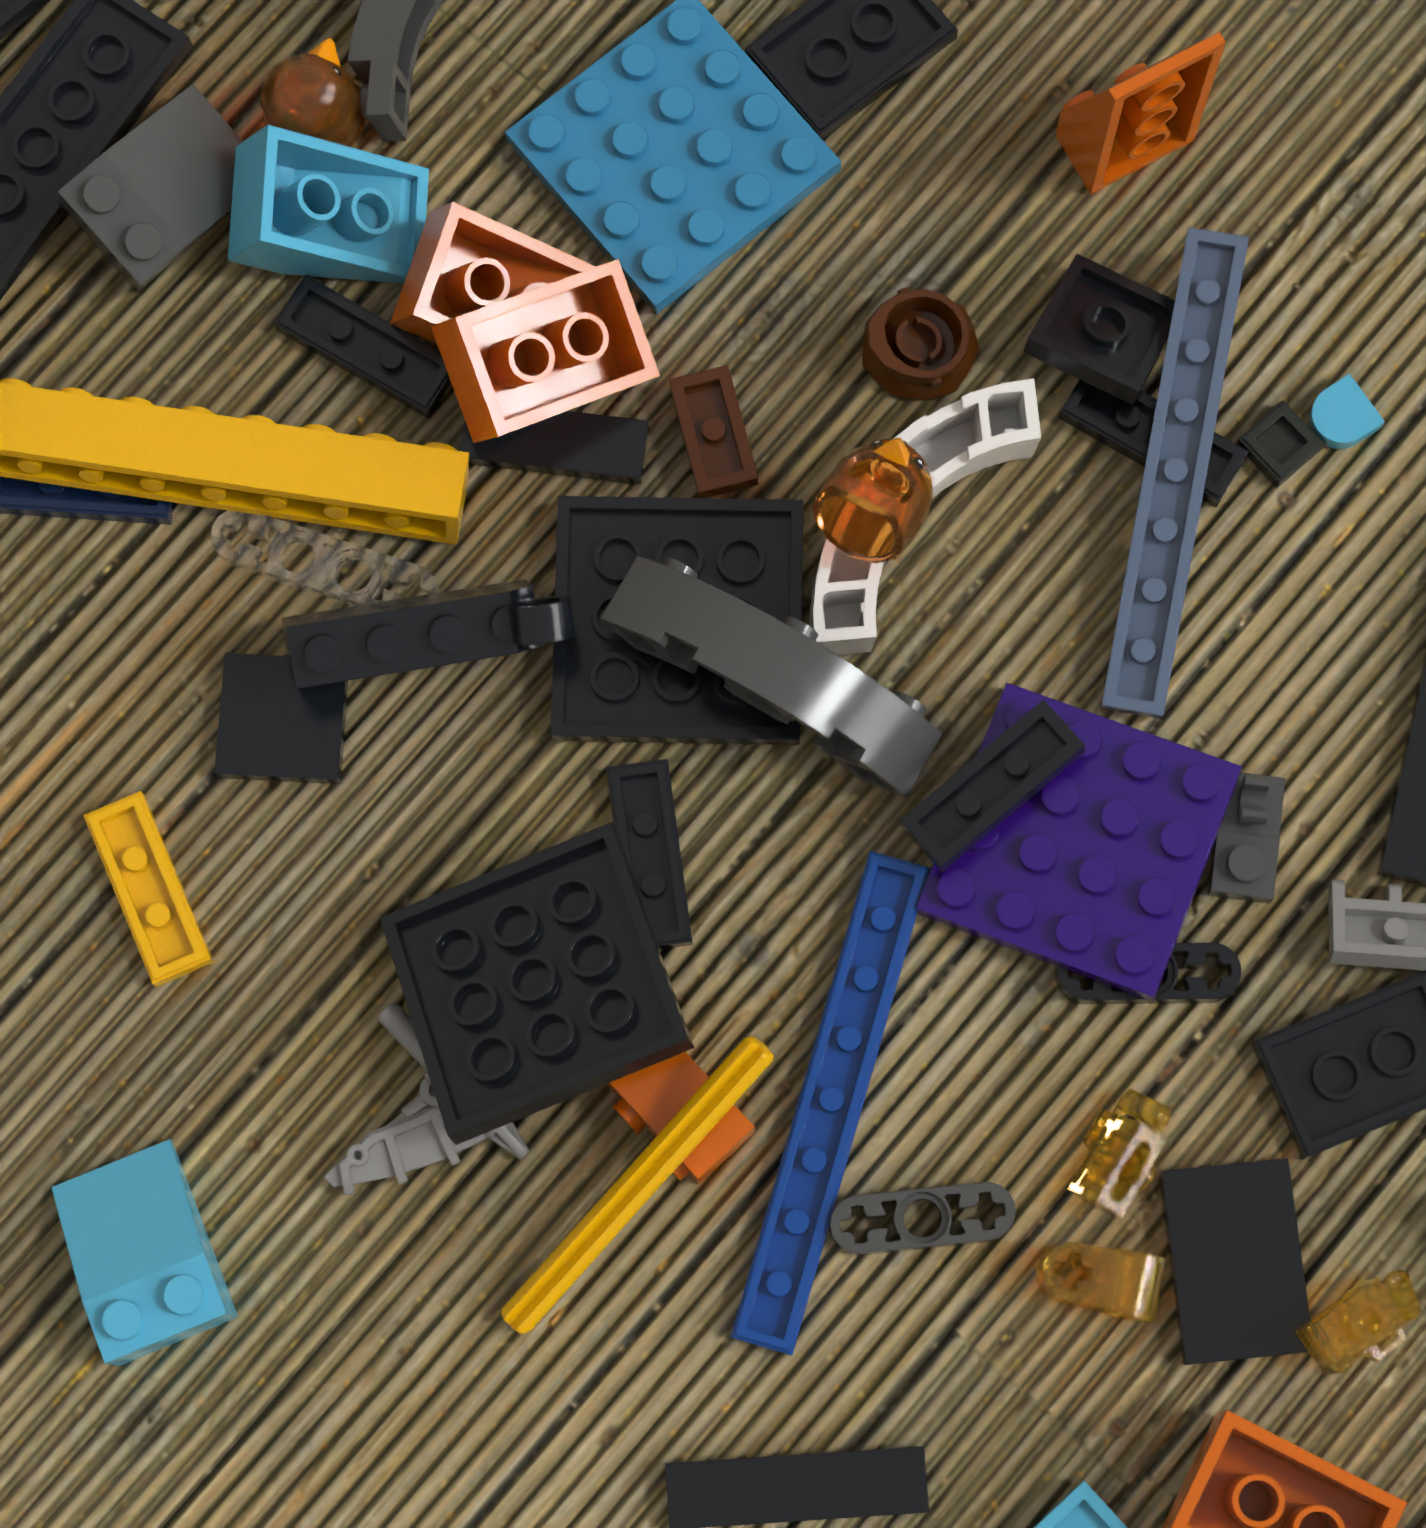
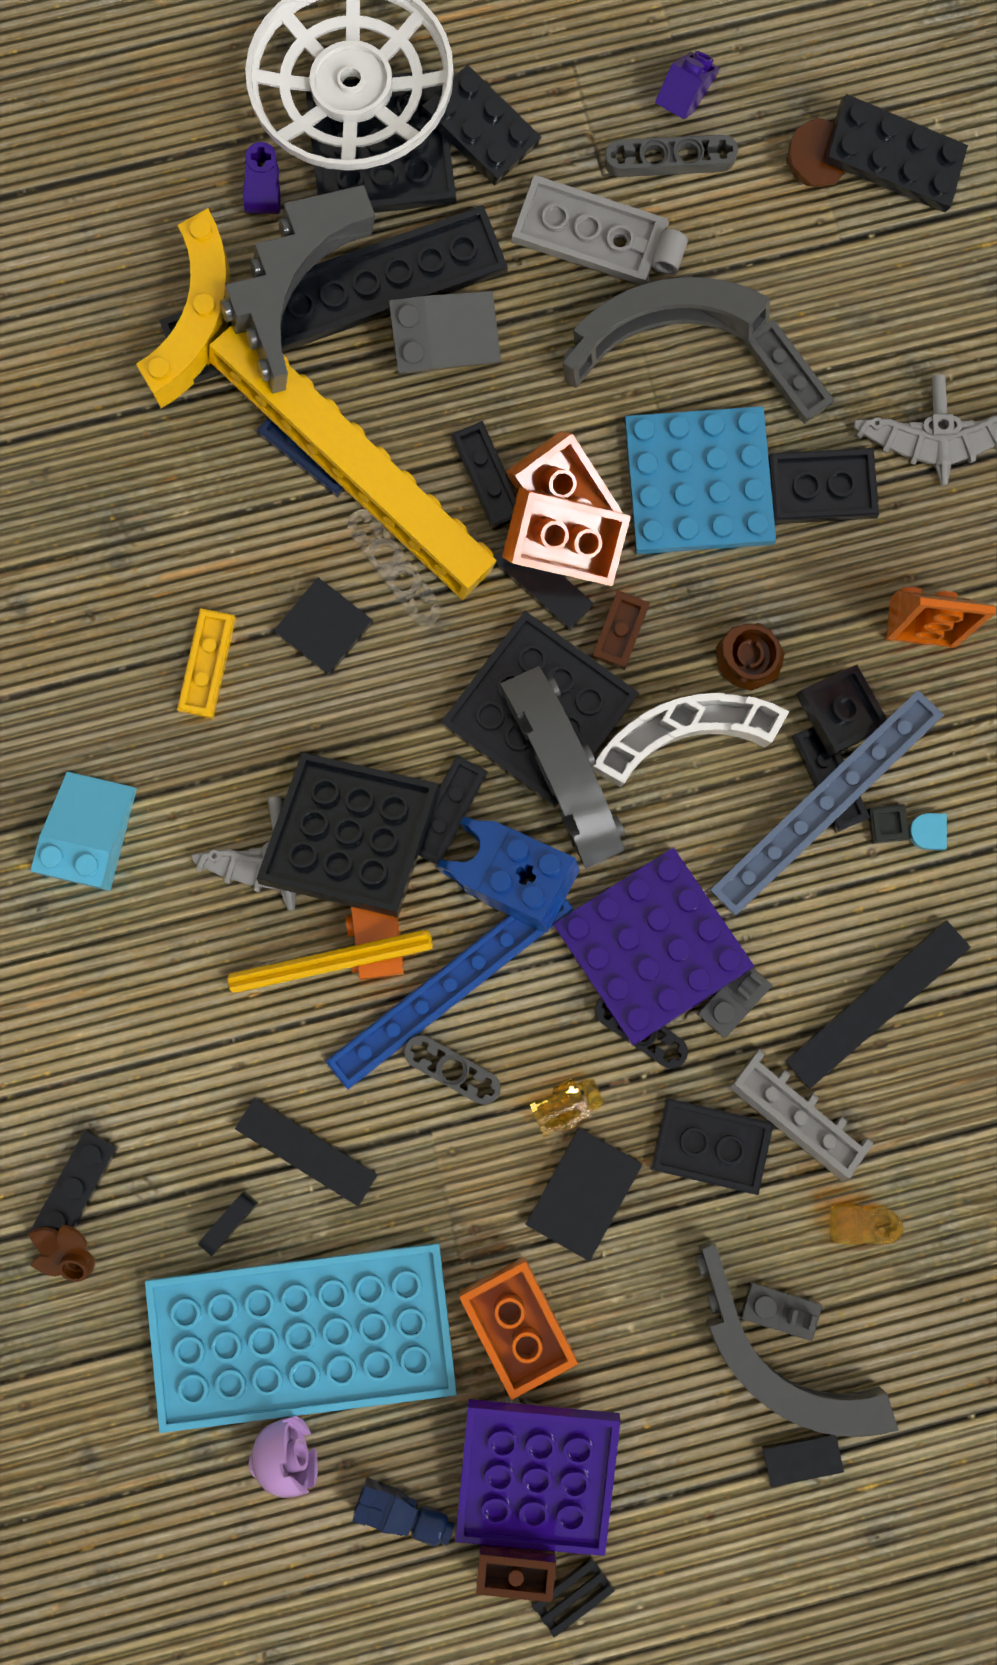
camera: 30 degrees right, 5 degrees up
(314, 96) = (542, 339): clear orange piece -> none
(324, 208) = (512, 395): medium azure slope -> none
(423, 632) = (413, 631): black hinge -> none
(786, 877) = (503, 865): none -> blue brick
(875, 500) = (667, 718): clear orange piece -> none
(992, 785) = (629, 892): black plate -> none
(1113, 1280) = (518, 1163): clear yellow piece -> none
(1361, 1321) = (620, 1263): clear yellow piece -> none

